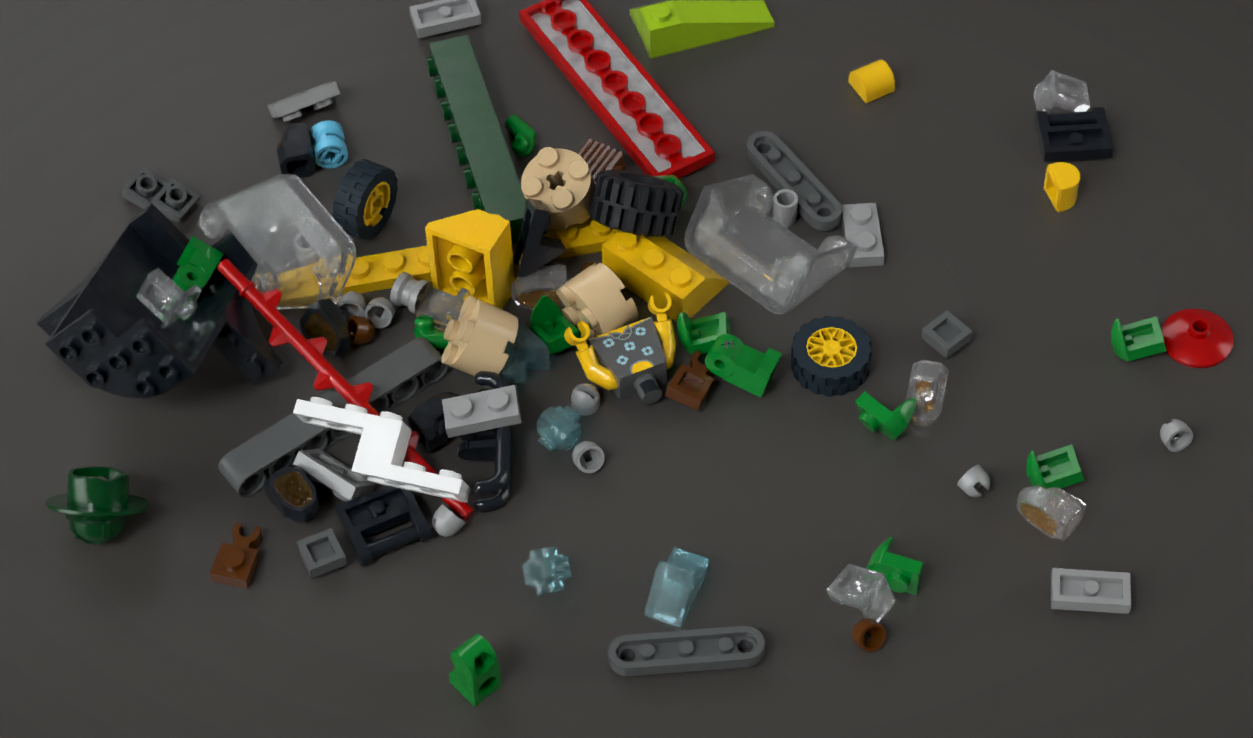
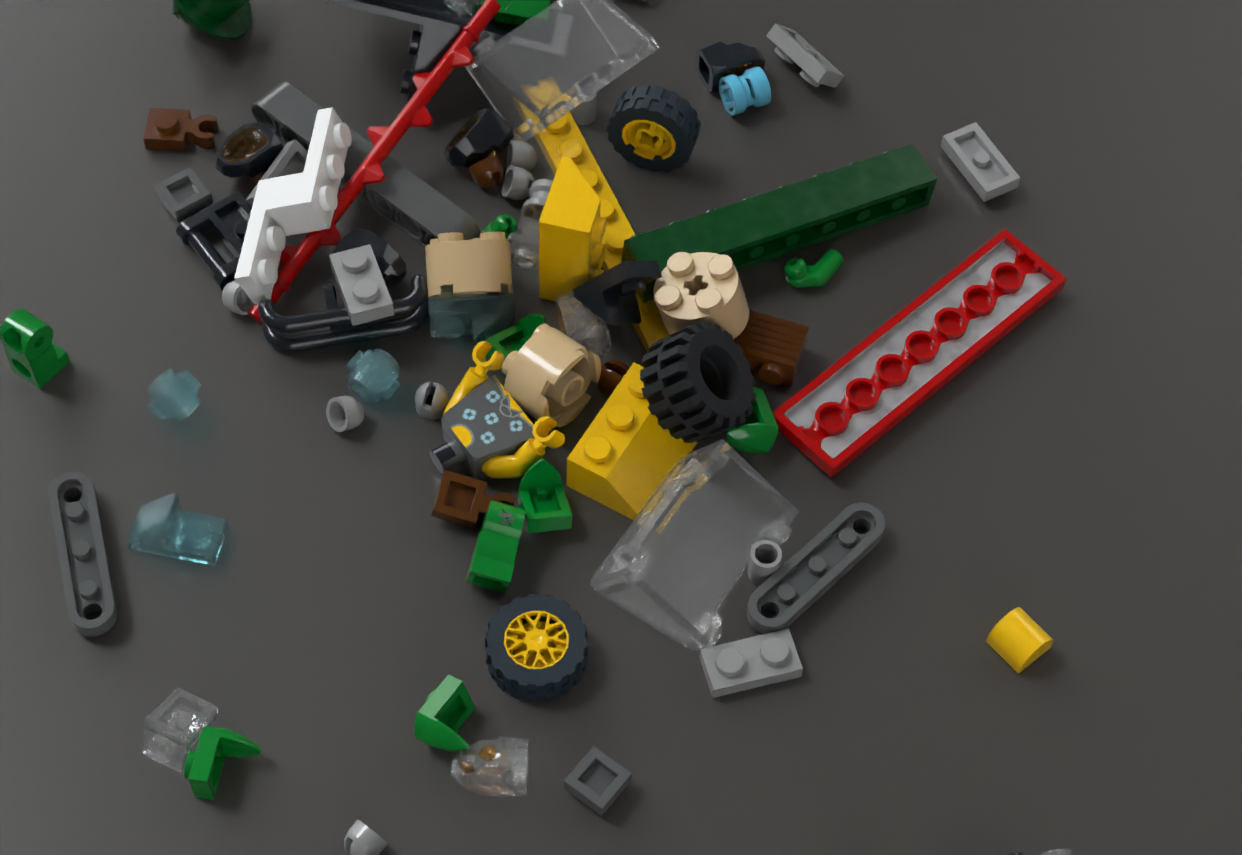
camera: 75 degrees right, 5 degrees up
(688, 24) = (1061, 420): lime wedge -> none
(874, 629) = (120, 743): reddish brown hinge -> none

